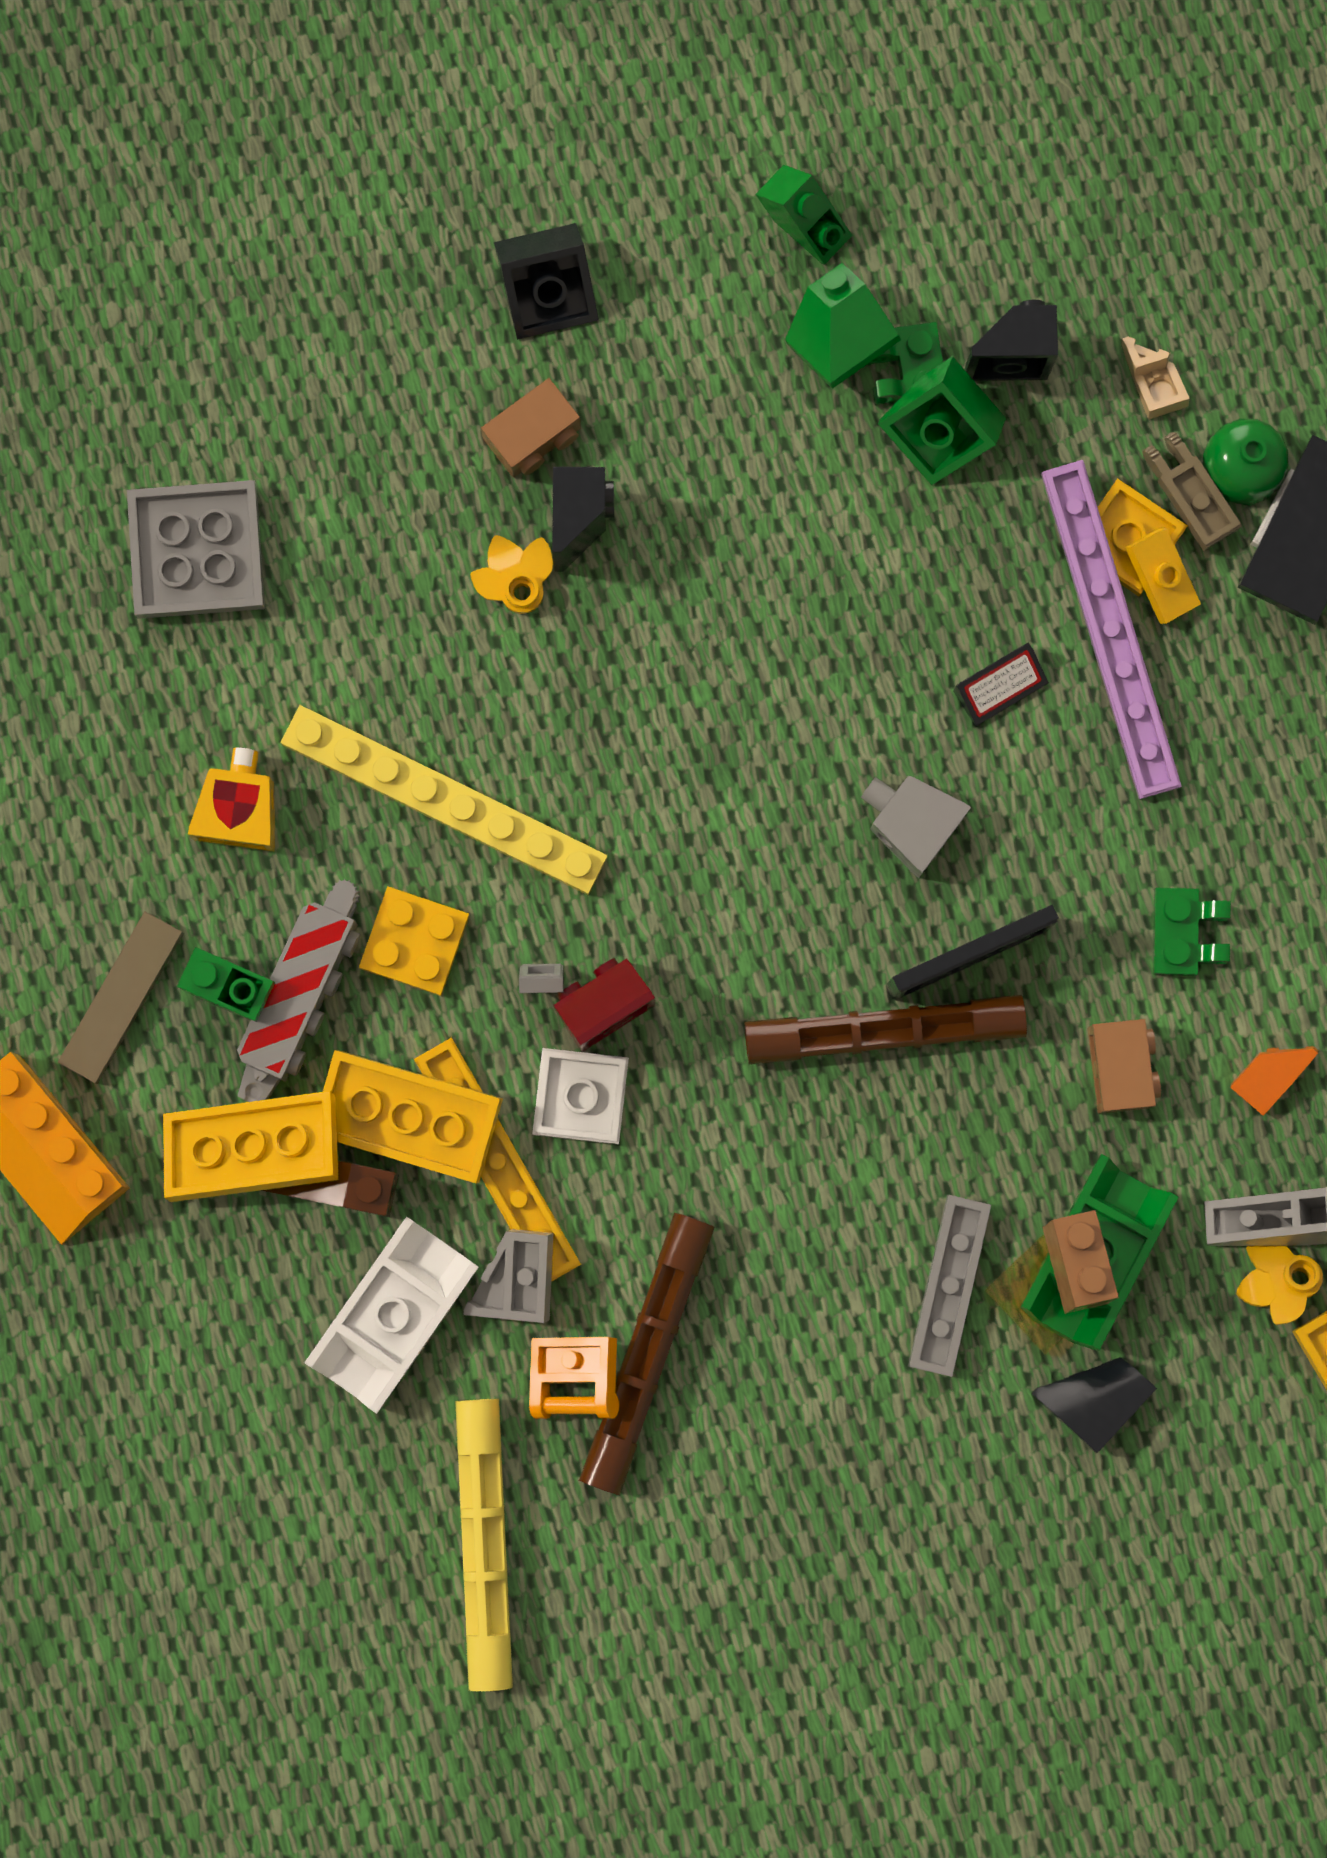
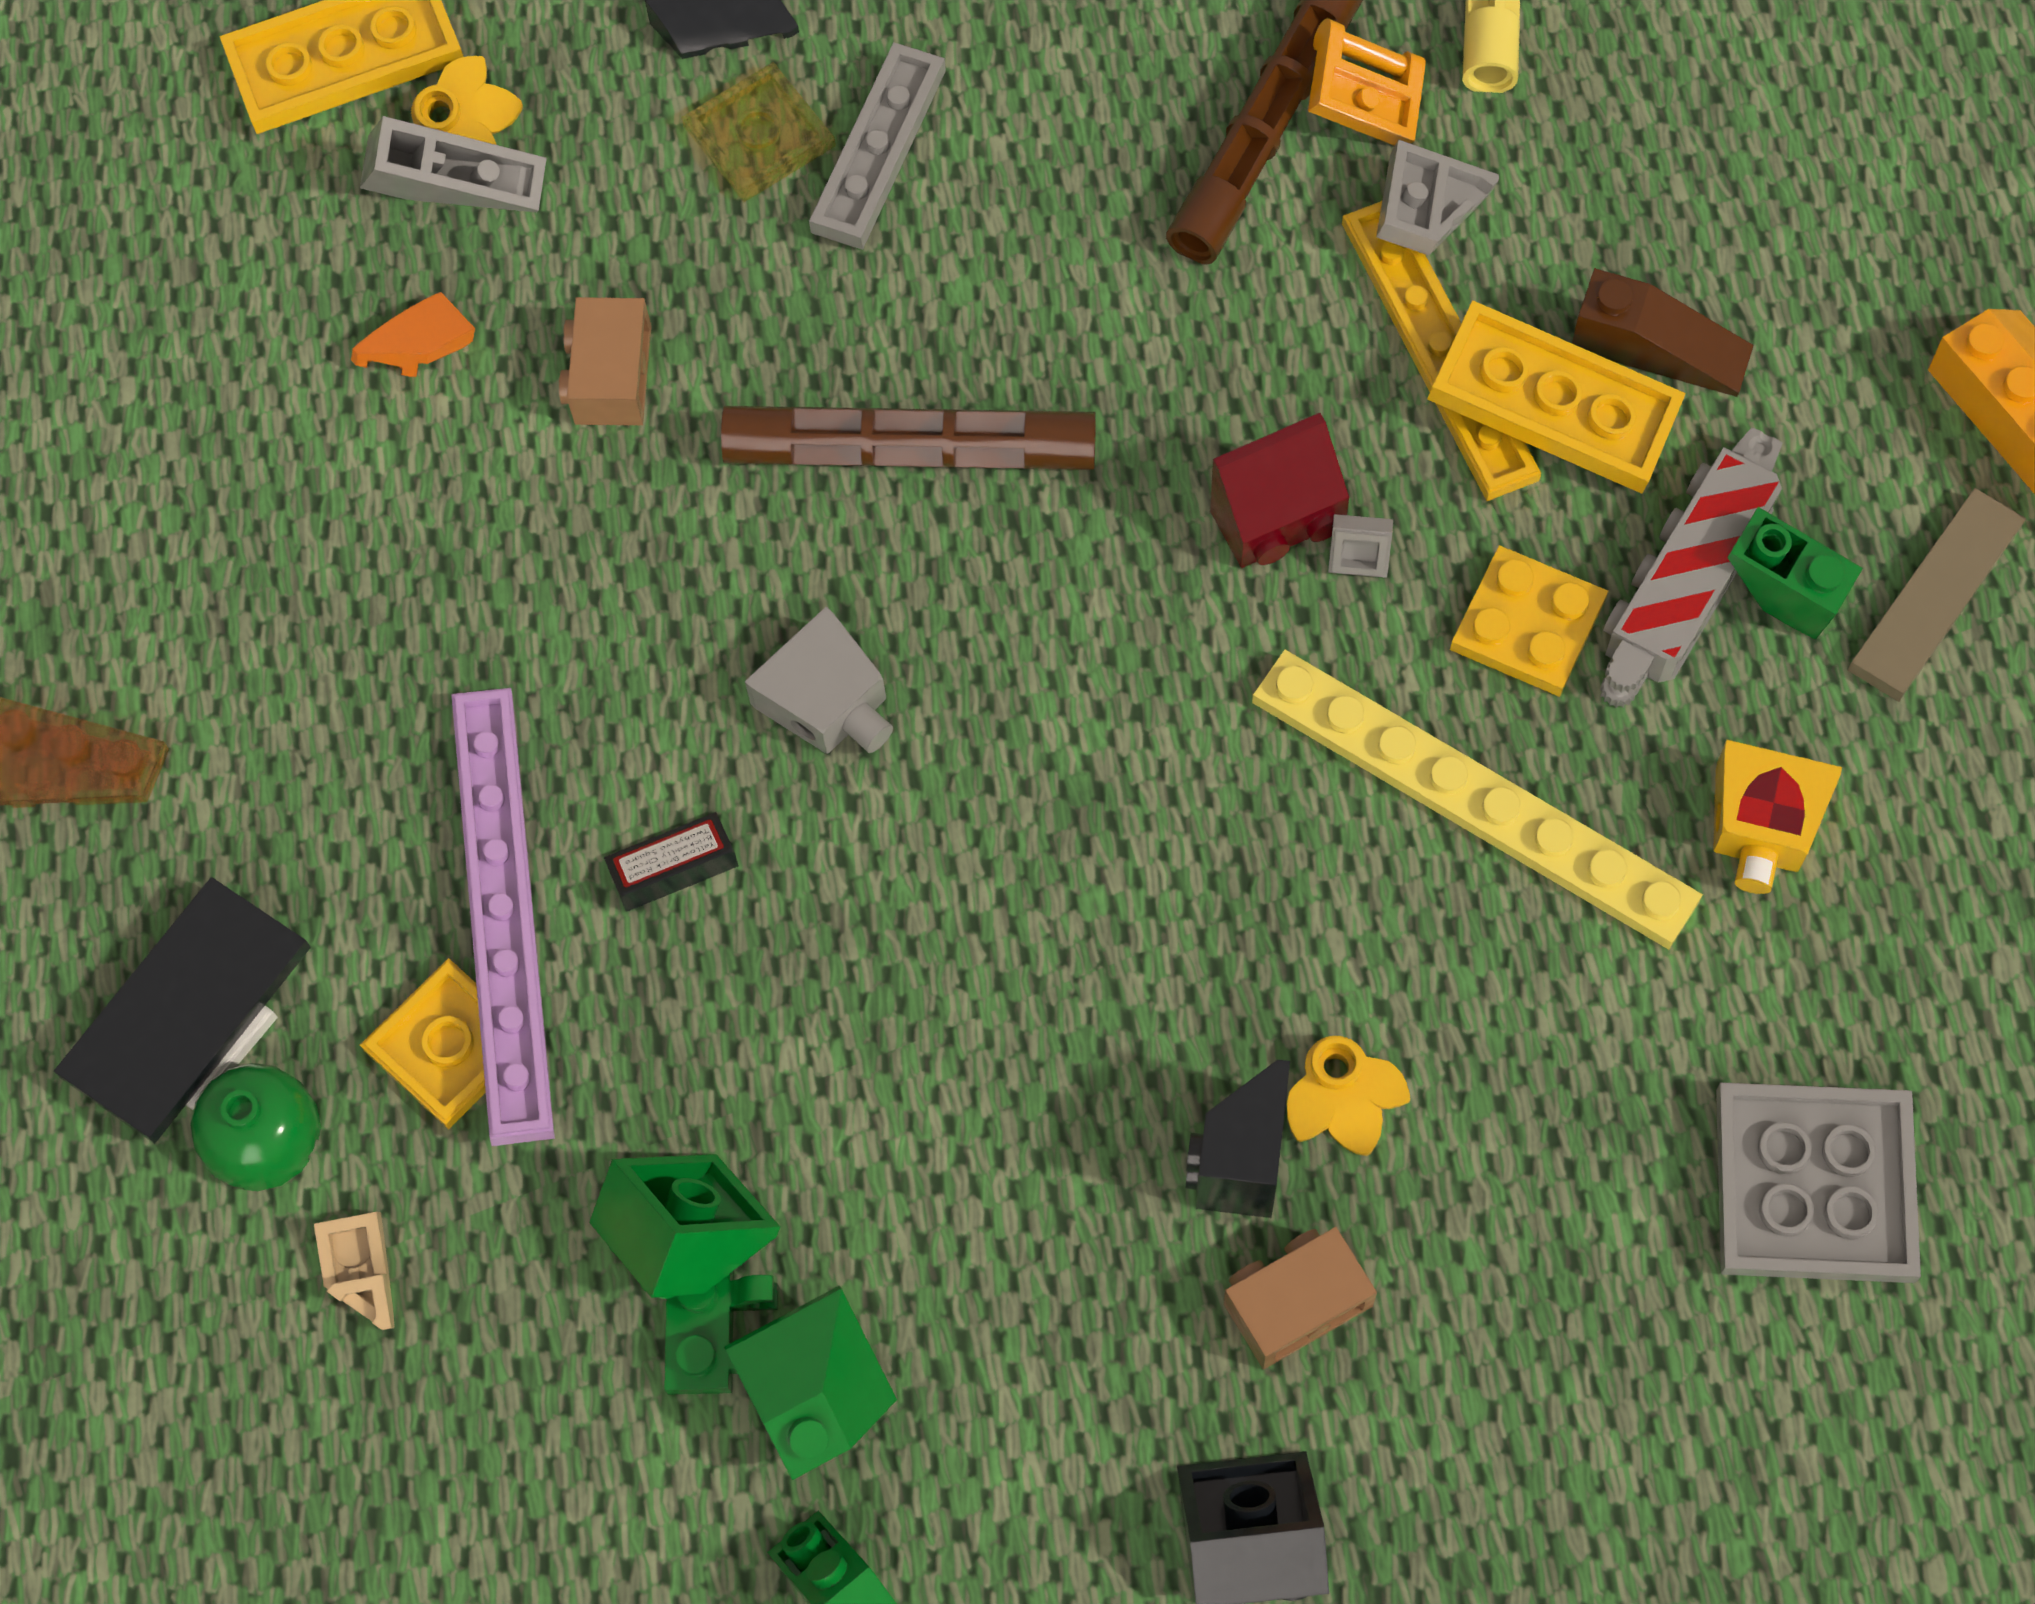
camera: 165 degrees left, 15 degrees down
(250, 1146) = (1768, 375): yellow plate -> none
(392, 1314) = (1585, 182): white piece -> none
(580, 1096) = (1340, 389): white tile -> none
(972, 953) = (778, 499): black tile -> none
(1018, 345) = (552, 1316): black slope -> none
(1080, 1262) = (711, 111): medium nougat brick -> none
(1130, 1223) = (681, 150): green piece -> none
(1163, 575) = (411, 973): yellow plate -> none
(1177, 931) = (500, 520): green plate -> none
(1193, 493) = (341, 1087): dark tan hinge -> none

